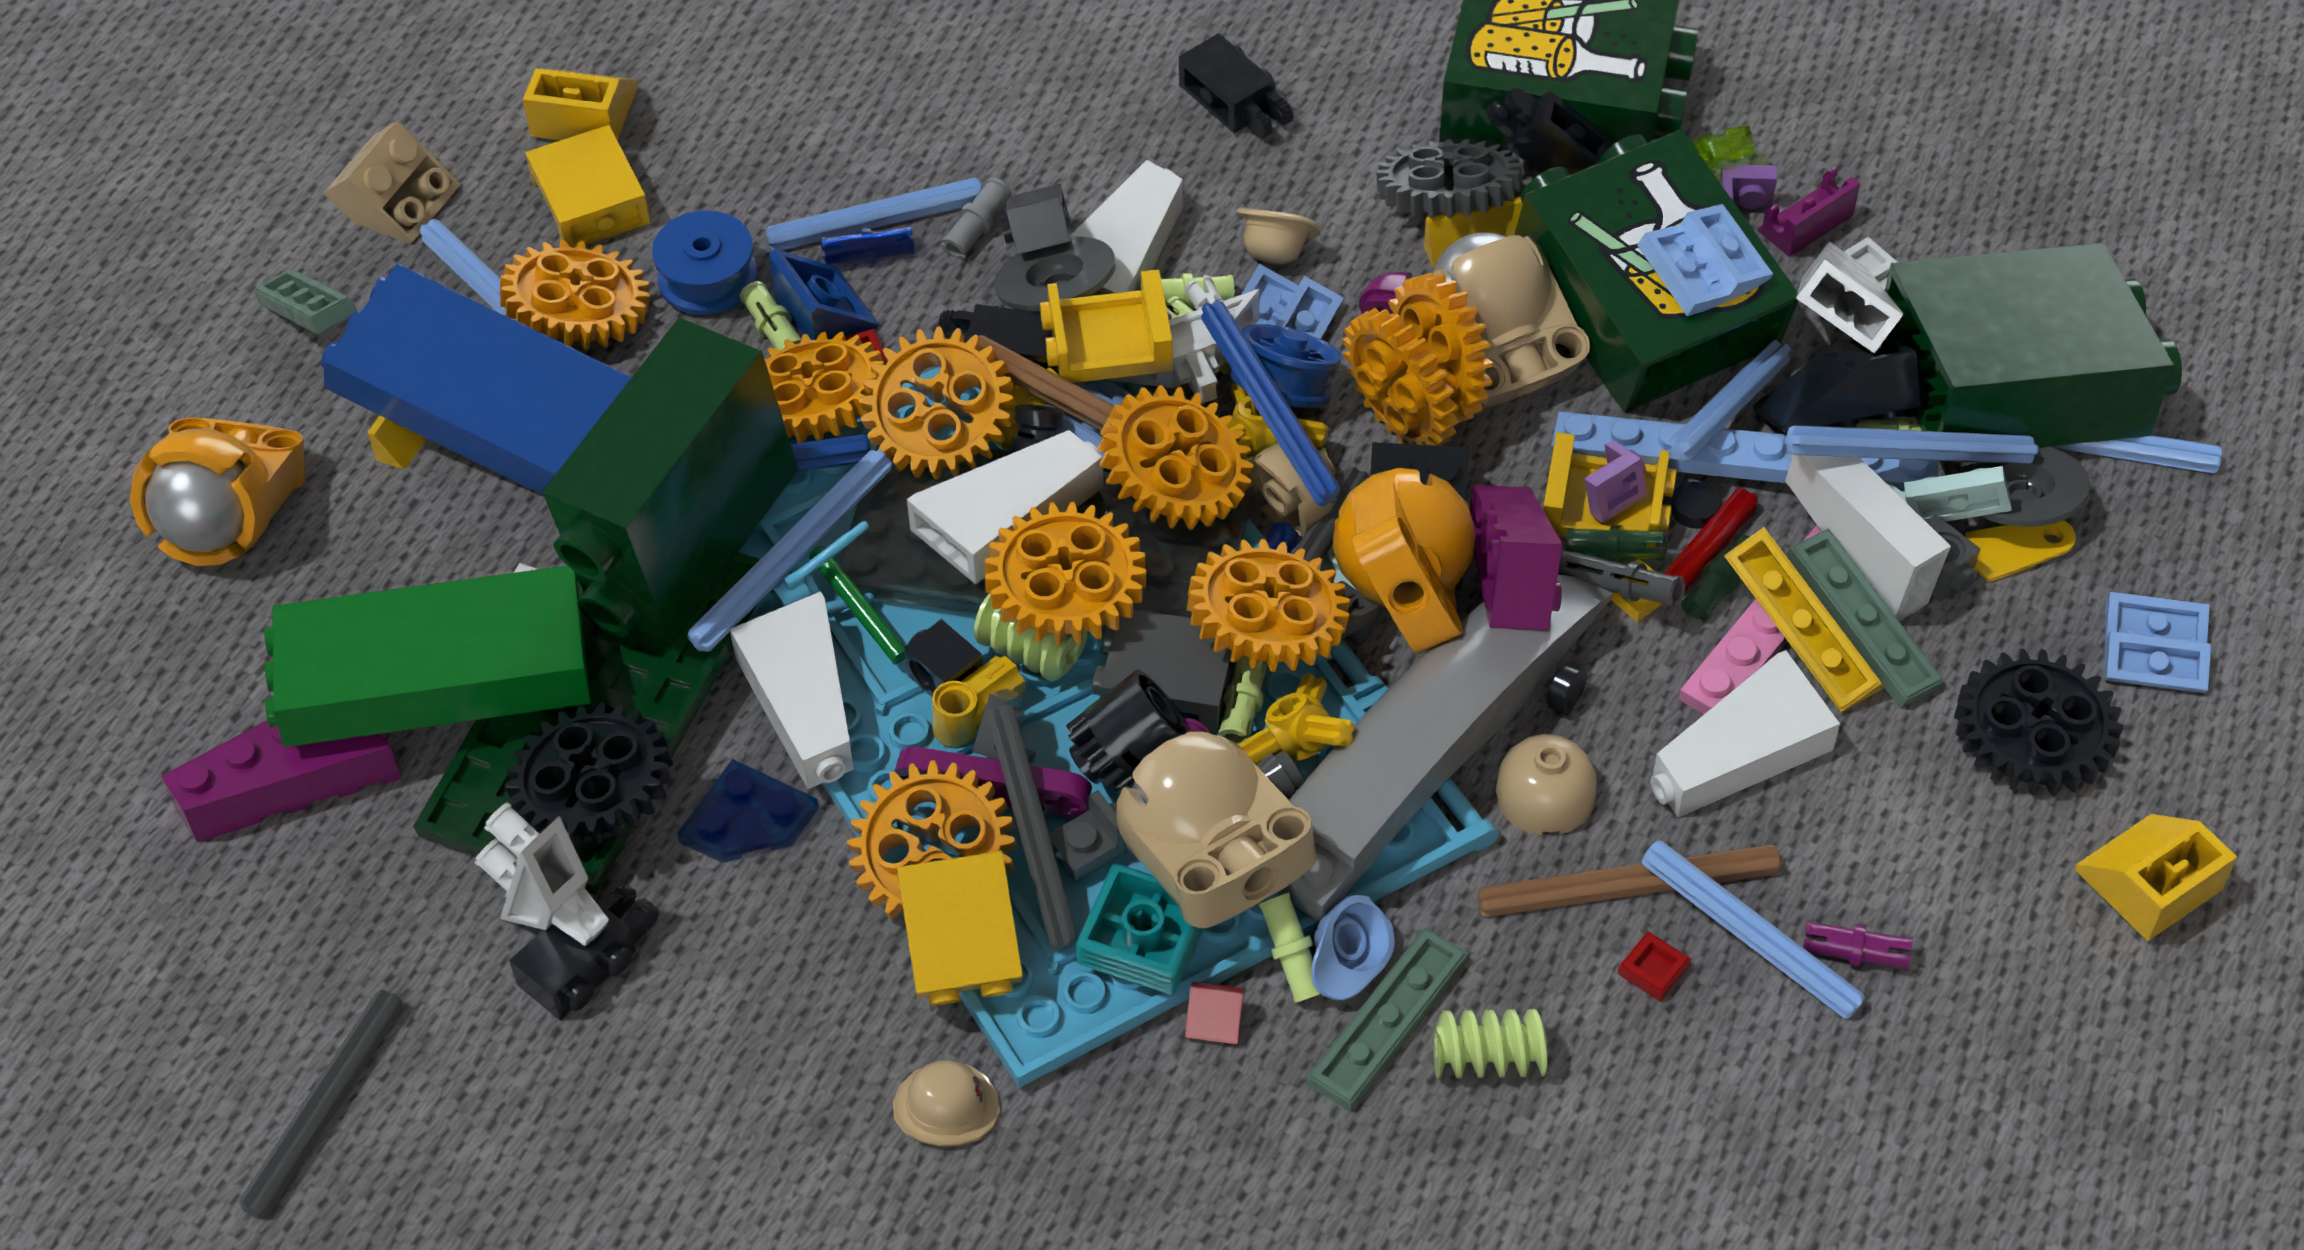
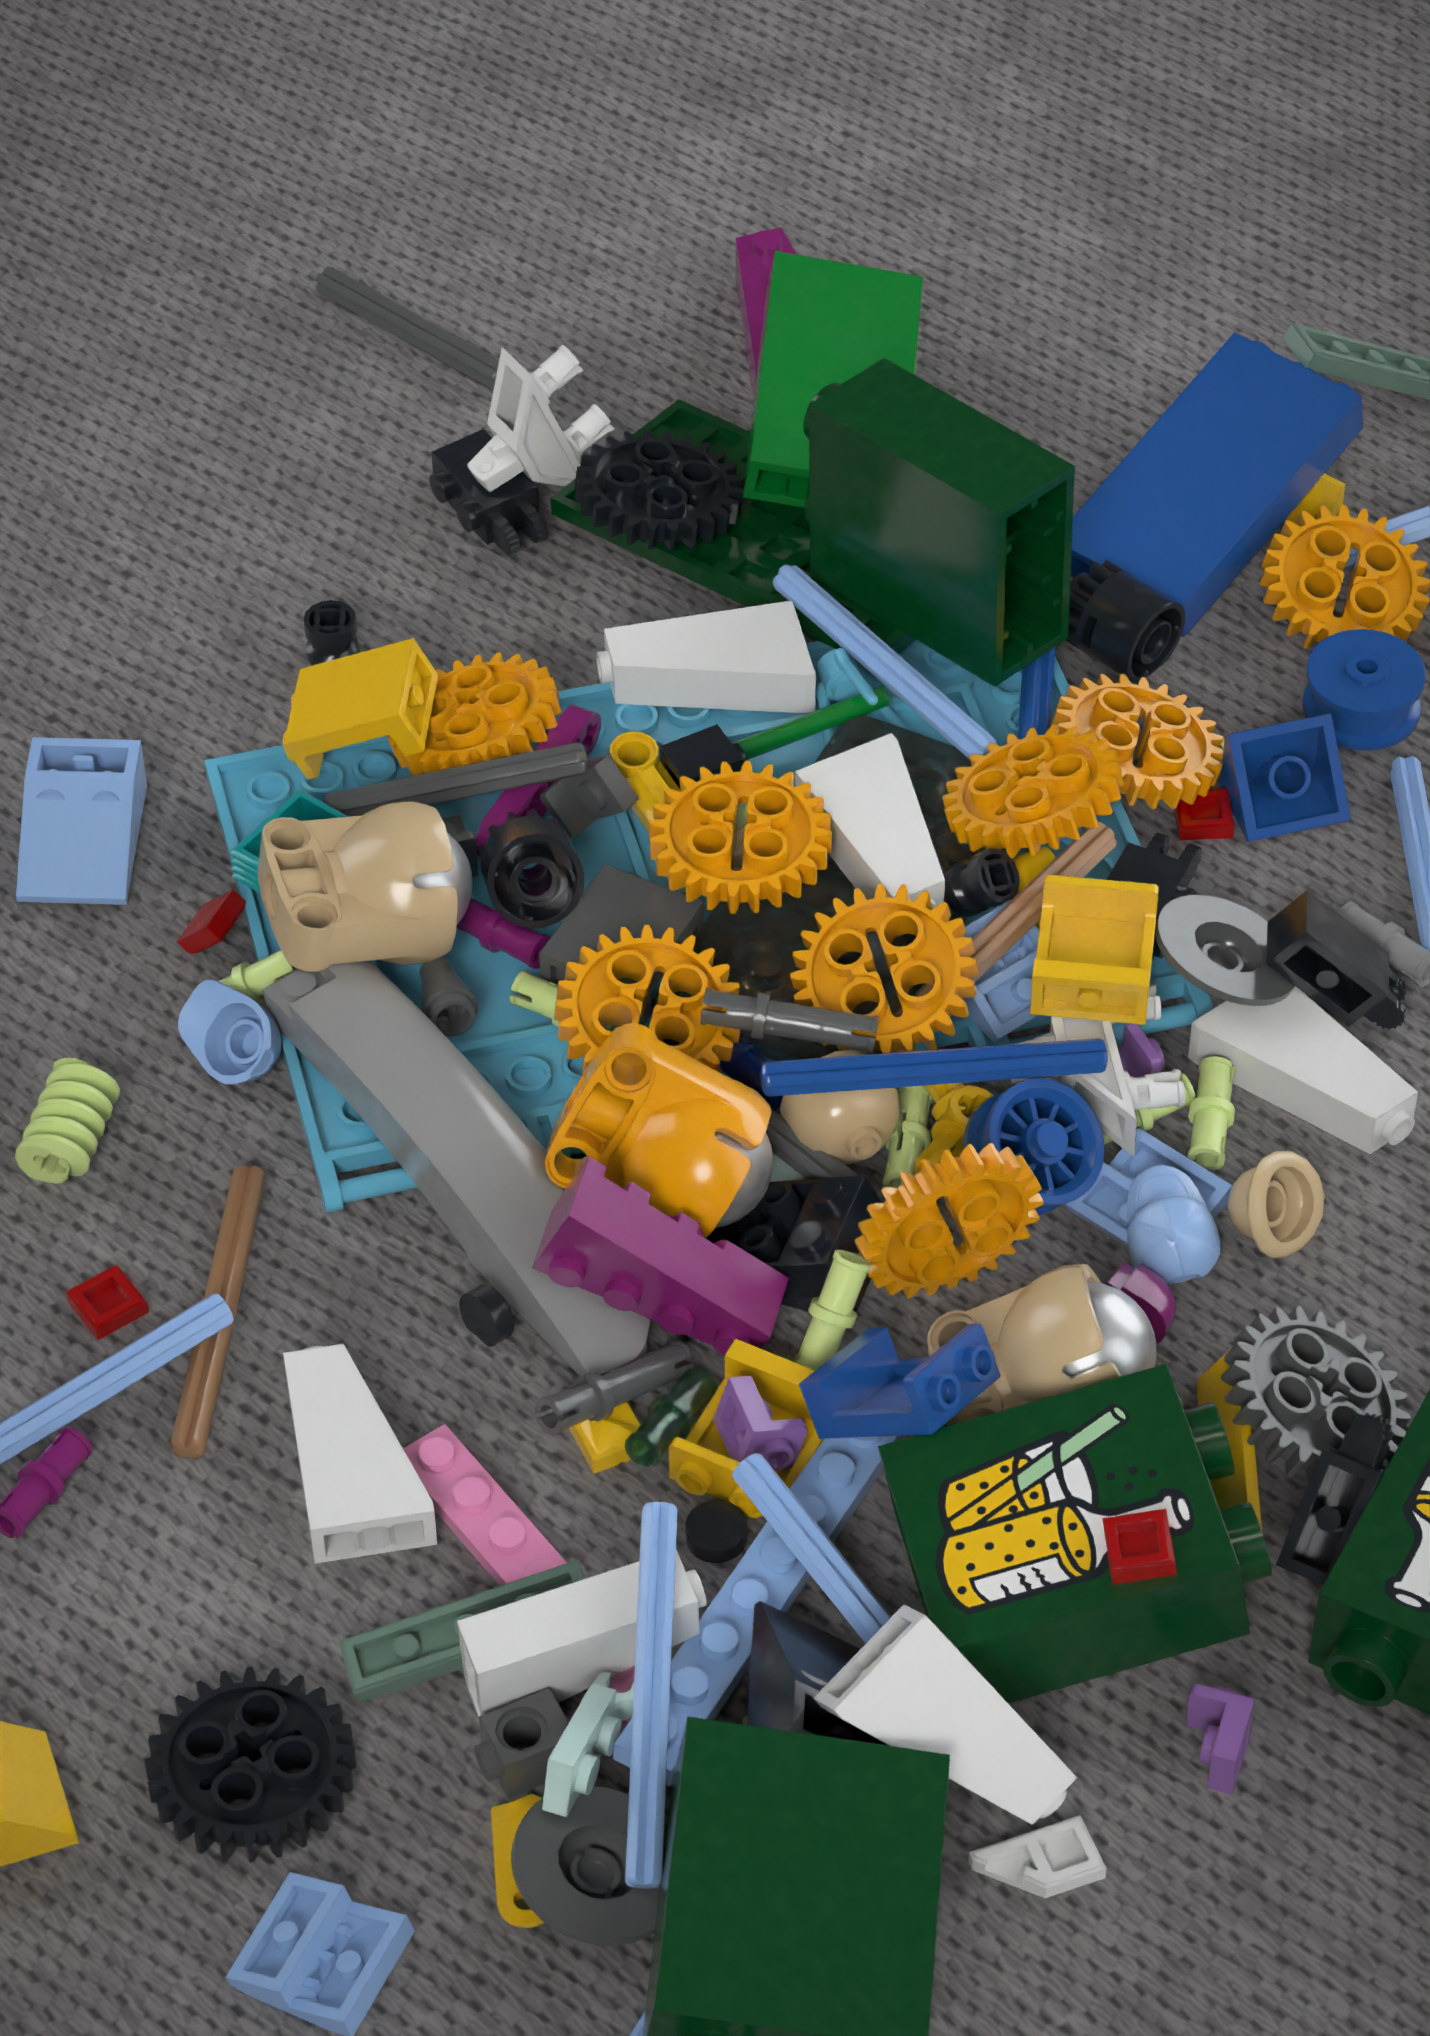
camera: 105 degrees right, 5 degrees down
(215, 486) = (1140, 287): light orange piece -> none
(746, 814) = (584, 623): clear blue plate -> none
(820, 1038) = (330, 631): none -> black wheel
(867, 245) = (1367, 841): clear blue pin -> none
(946, 1104) = (213, 721): tan hat -> none
(1131, 1156) = (80, 820): none -> light blue slope
(1260, 512) = (788, 1020): none -> dark grey pin
(1299, 725) = (501, 1028): yellow bush -> none
(1320, 286) = (1170, 1226): none -> light blue piece
(1386, 1019) = (152, 1067): sand green tile -> none
(1451, 333) = (982, 1264): light orange gear -> none
(1491, 452) = (833, 1309): none -> yellowish green pin
(1546, 785) = (368, 1264): tan cylinder -> none
(1569, 373) = (877, 1394): none -> blue panel
(1688, 183) = (1139, 1546): none -> red tile
(1704, 259) = (1010, 1536): light blue slope -> none
(1713, 536) = (628, 1499): red axle -> none
(1716, 582) = (590, 1514): clear green pin -> none
(1717, 147) = (1294, 1705): clear neon green plate -> none
(1803, 620) = (489, 1557): yellow slope -> none
(1811, 215) = (1163, 1808): magenta hinge -> none

